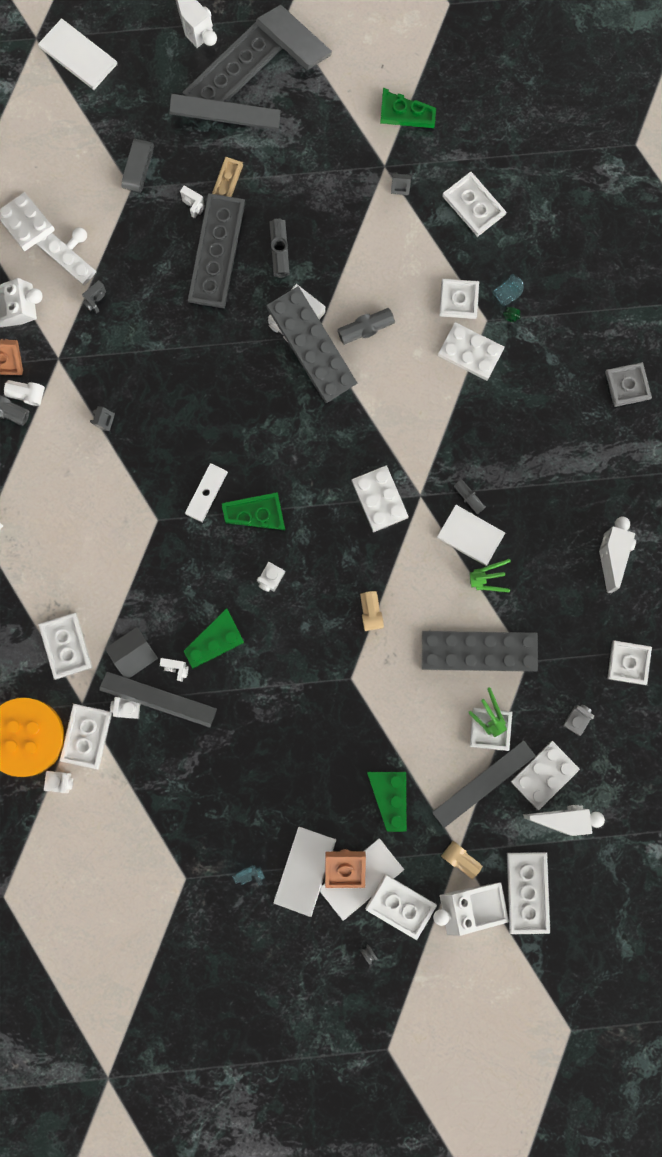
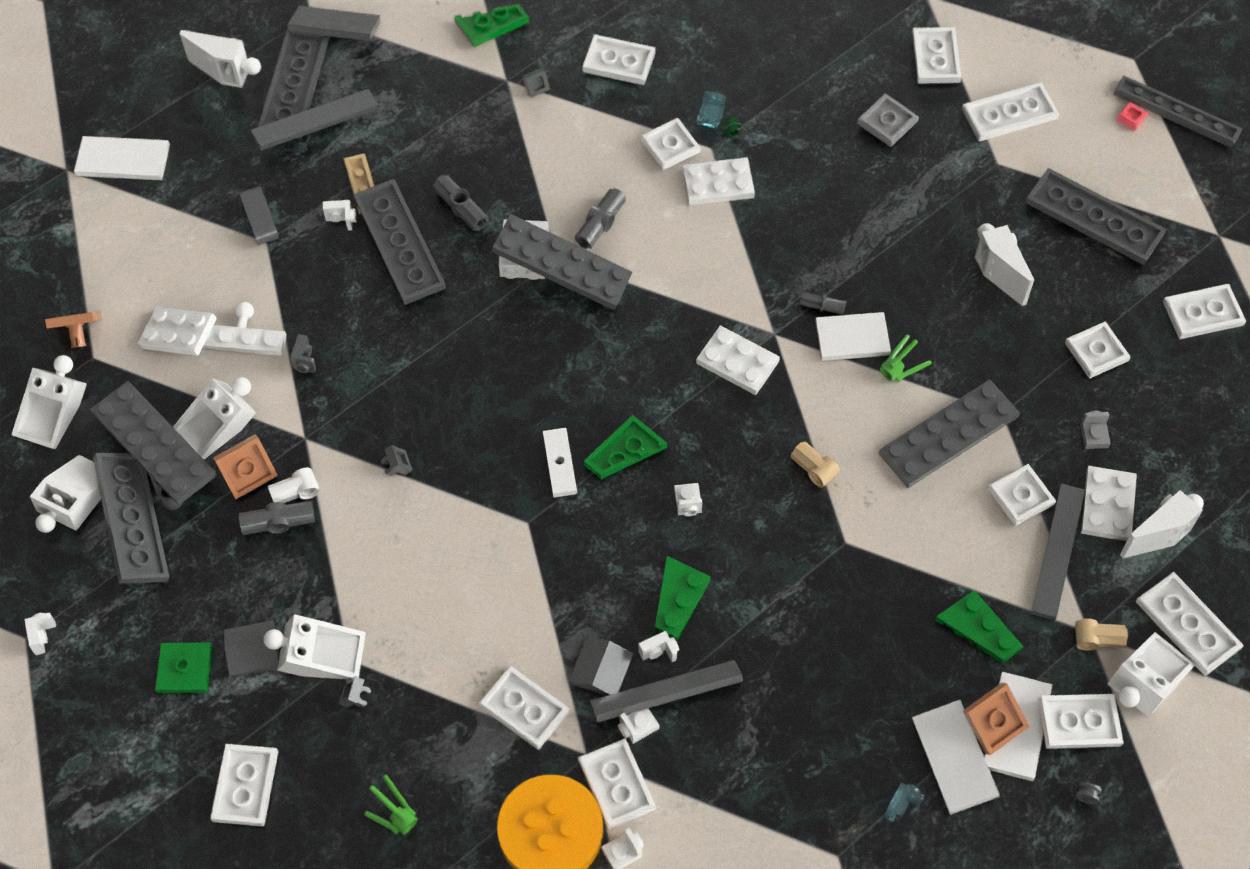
camera: 30 degrees left, 20 degrees down
(497, 724) = (1025, 481): bright green plant -> none

